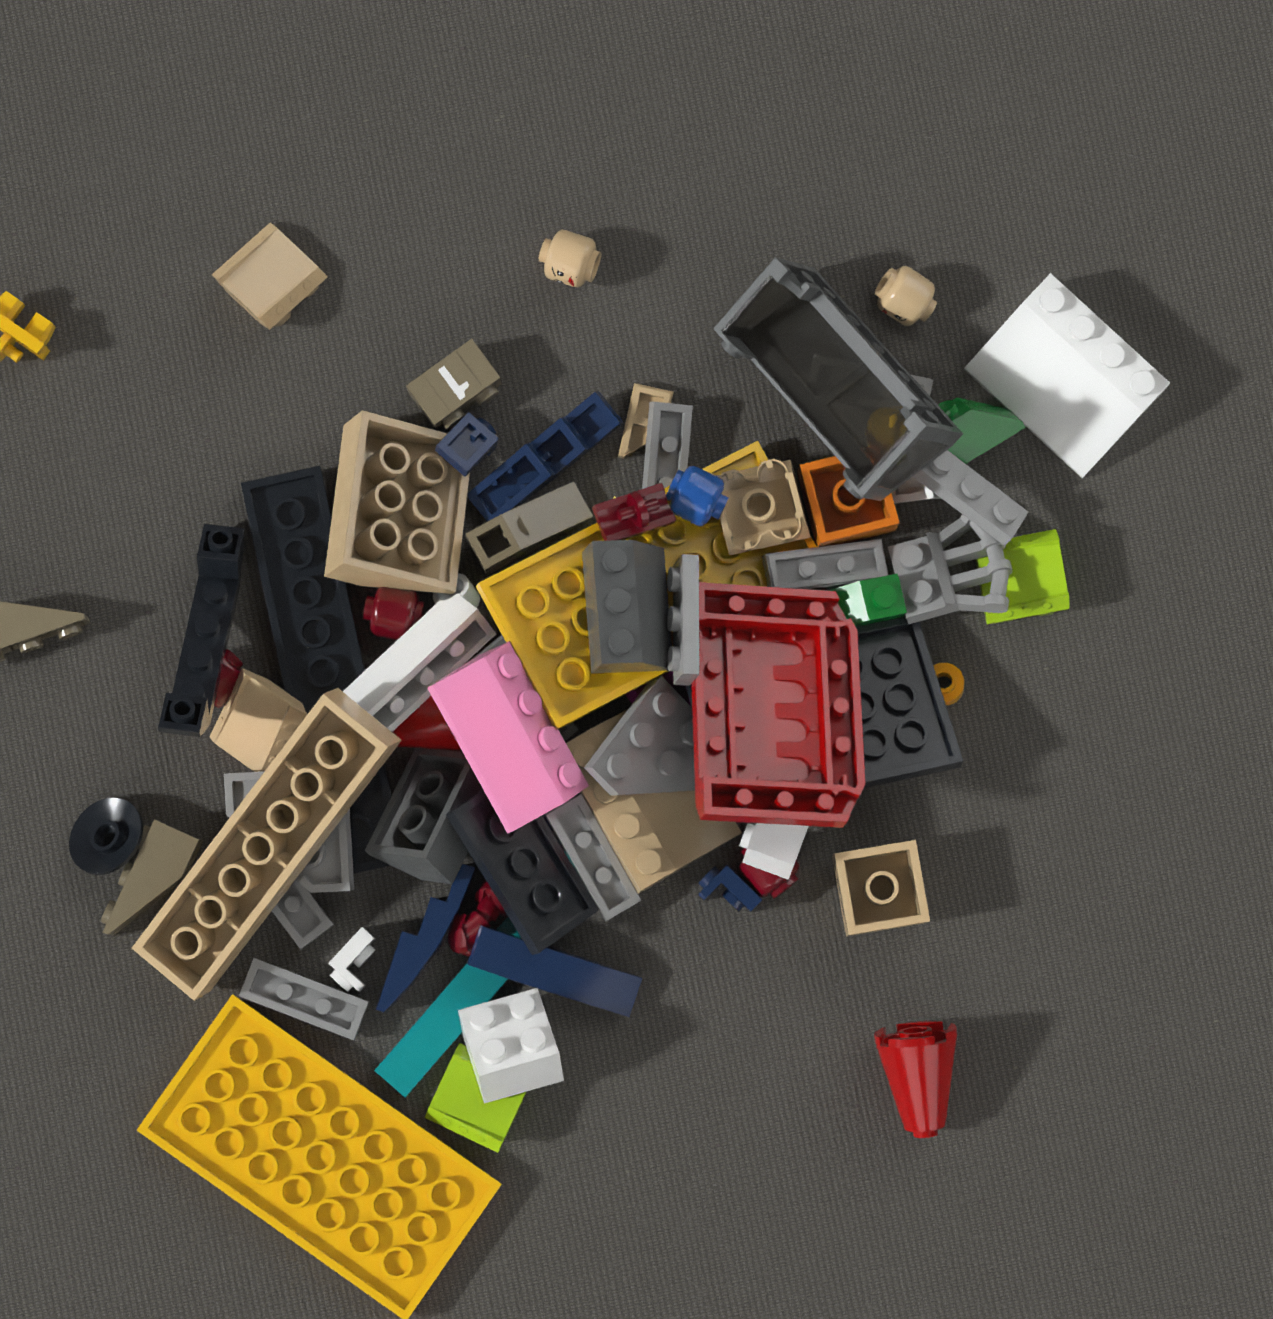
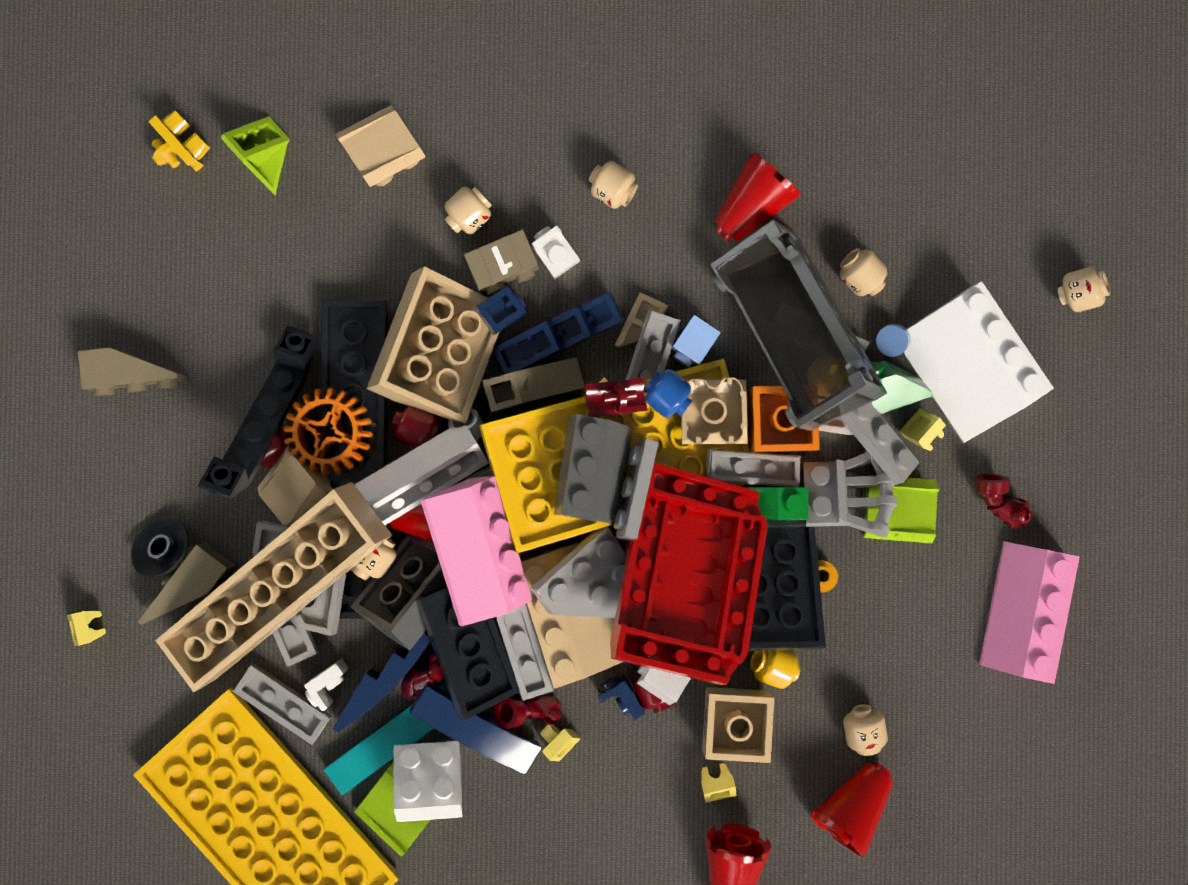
camera: 15 degrees right, 5 degrees up
(28, 961) = (79, 627): none -> light yellow tile
(121, 315) = (260, 148): none -> lime slope
(289, 621) = (321, 444): none -> orange gear
(385, 786) = (376, 562): none -> tan head
(397, 331) = (467, 210): none -> tan head
(516, 357) = (554, 251): none -> white bracket
(596, 937) = (513, 711): none -> dark red arm
(664, 966) = (559, 742): none -> light yellow tile
(716, 428) = (694, 342): none -> light blue brick
(748, 237) = (754, 199): none -> red cone
(876, 975) = (719, 787): none -> light yellow tile
(911, 806) = (775, 667): none -> yellow head
(963, 370) = (893, 340): none -> medium blue tile
(1026, 471) = (923, 429): none -> light yellow tile
(1043, 861) = (865, 730): none -> tan head
(1052, 961) = (856, 808): none -> red cone
(1162, 548) = (1010, 510): none -> dark red arm
(1183, 254) = (1084, 289): none -> tan head
(1210, 666) = (1029, 612): none -> bright pink slope

